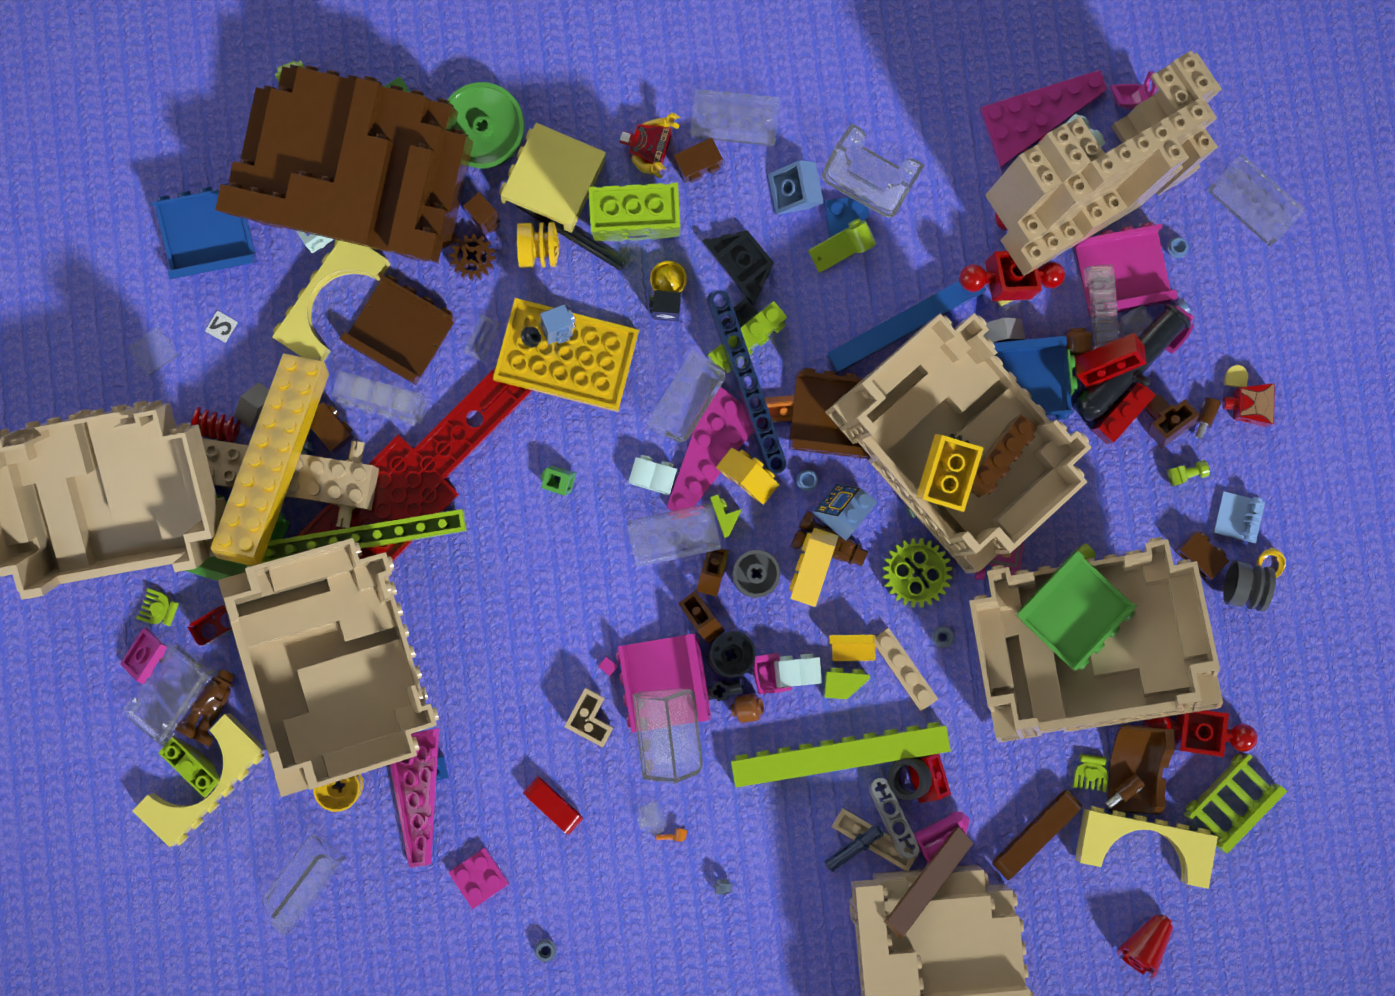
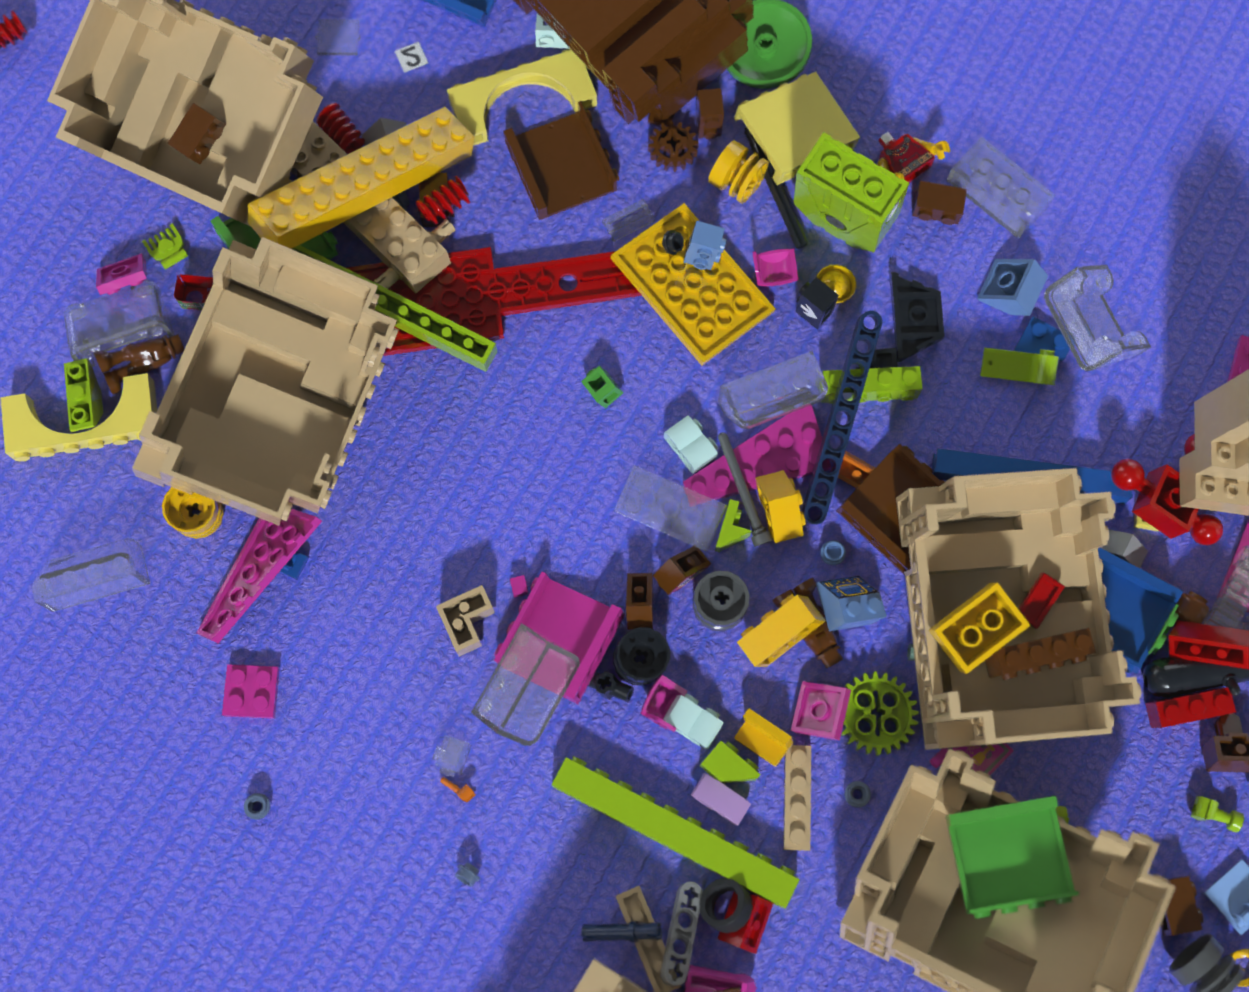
camera: 40 degrees right, 10 degrees down
(120, 515) = (196, 134): none -> reddish brown brick
(341, 428) = (444, 200): none -> red piece
(379, 397) = (499, 204): clear brick -> none
(553, 805) = (370, 675): red beam -> none
(616, 298) = (775, 267): none -> dark pink piece
(747, 708) = (619, 720): dark orange head -> none
(748, 505) = (759, 533): none -> dark grey piece
(854, 710) = (720, 799): none -> lavender slope
(878, 600) = (820, 710): none -> dark pink plate
(974, 416) = (1040, 599): none -> red tile

